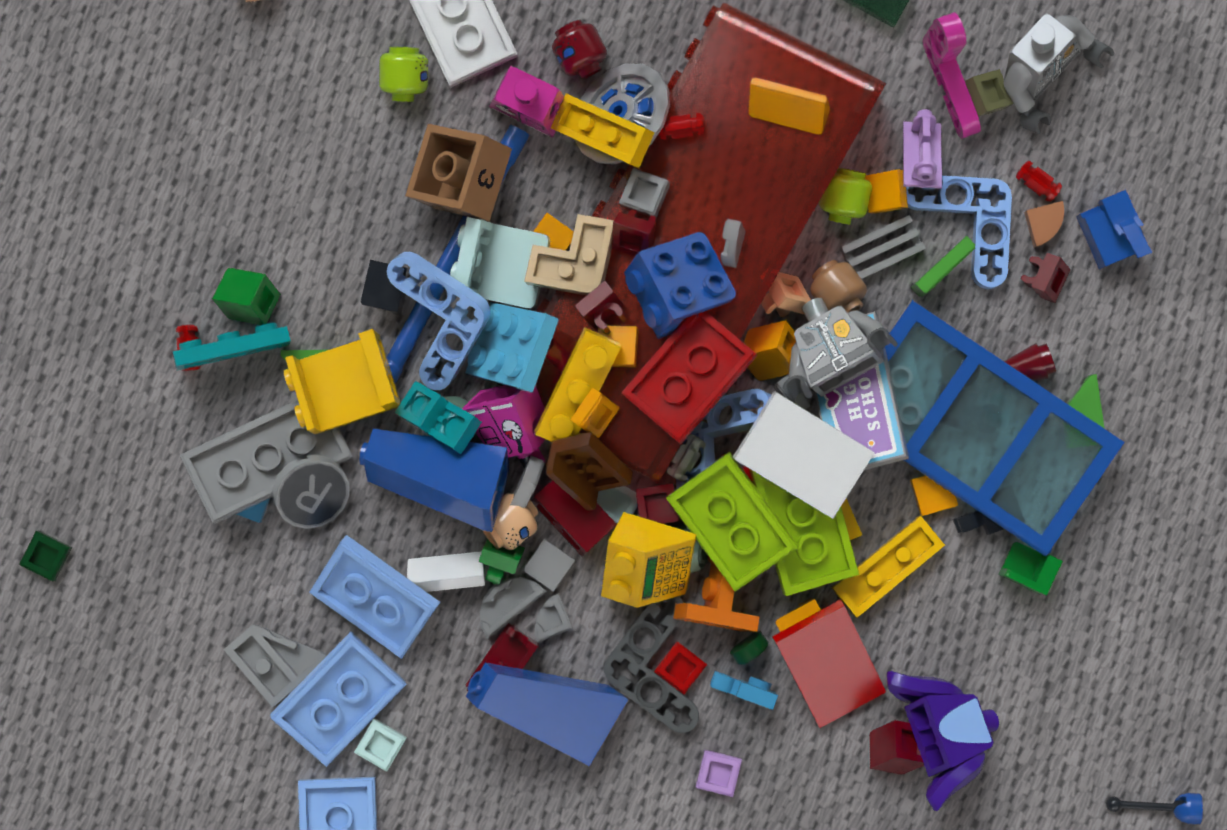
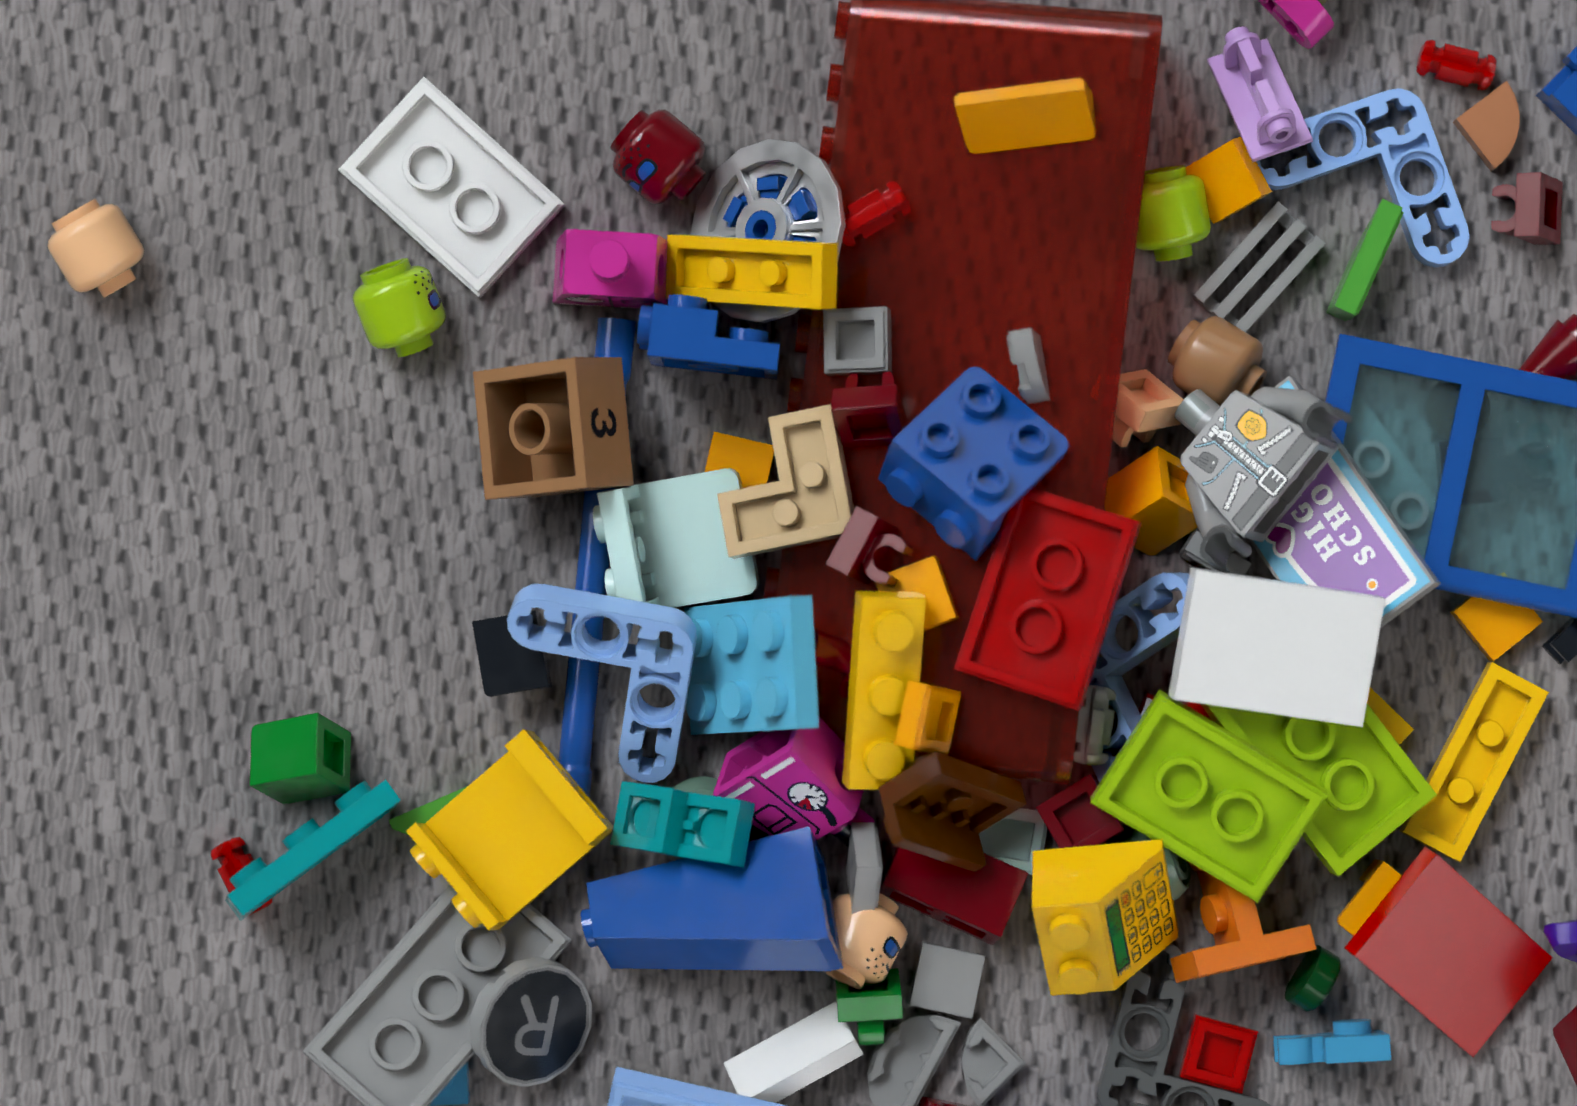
camera: 25 degrees left, 0 degrees up
(554, 154) = (688, 338): none -> blue plate

